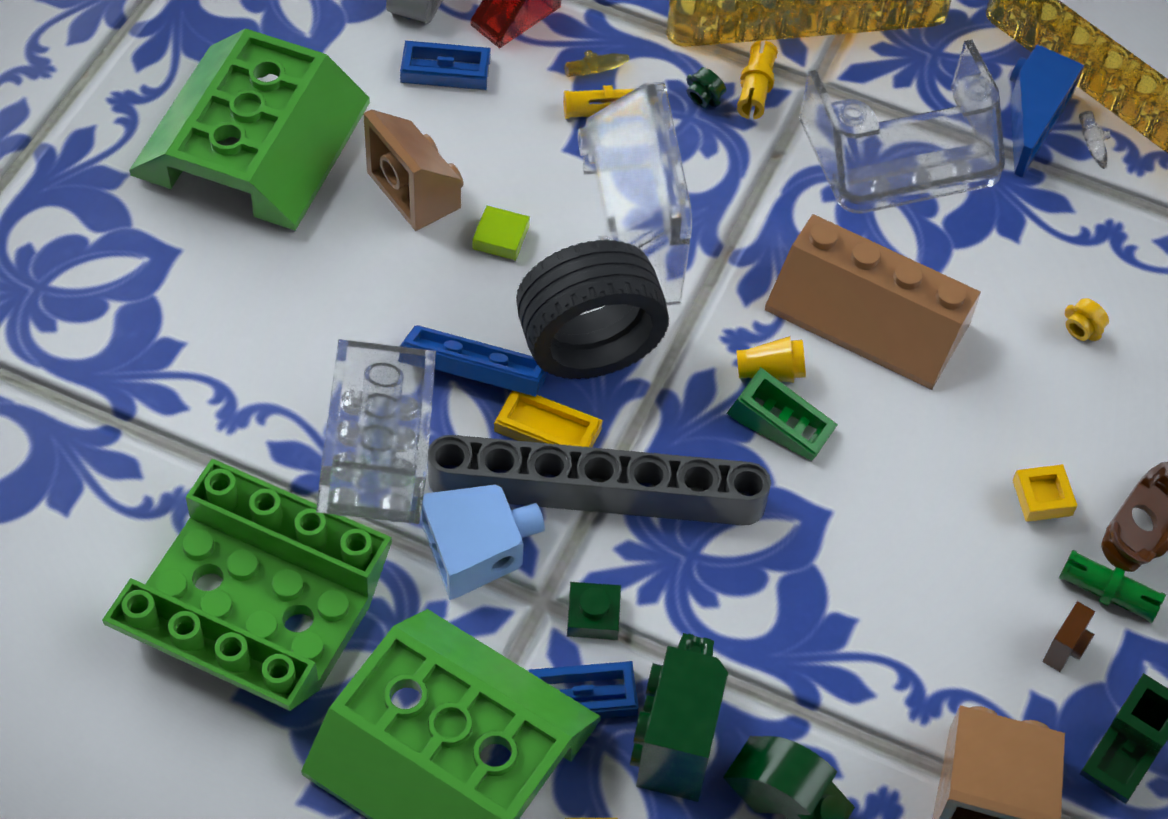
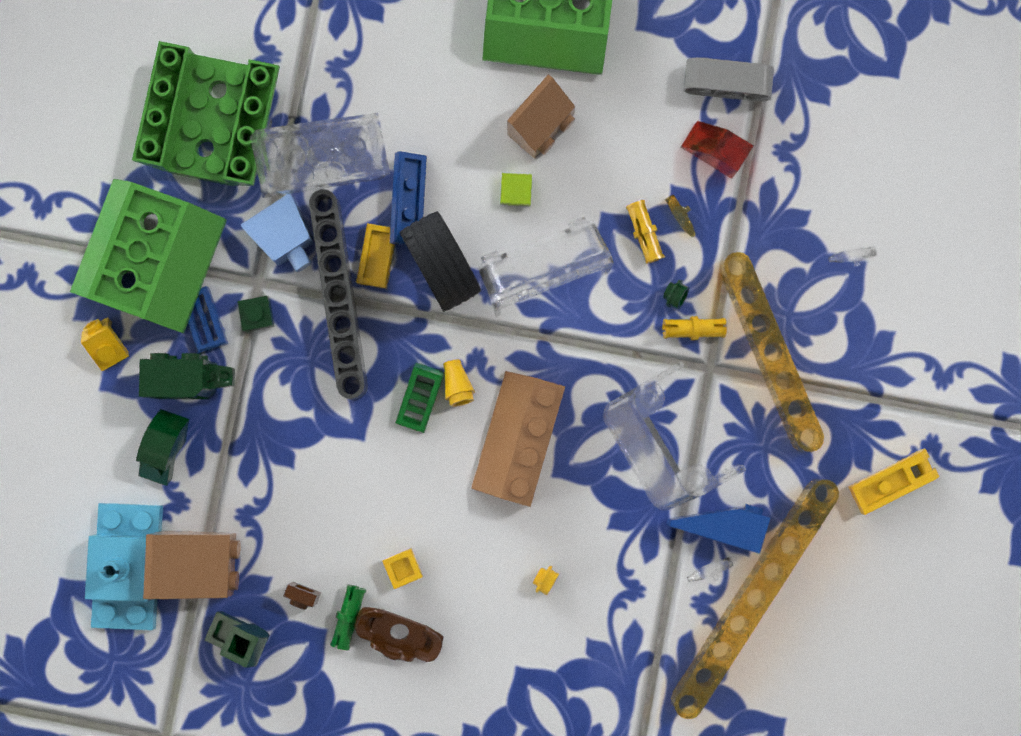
camera: 85 degrees right, 30 degrees up
(442, 68) = (654, 140): blue tile -> none

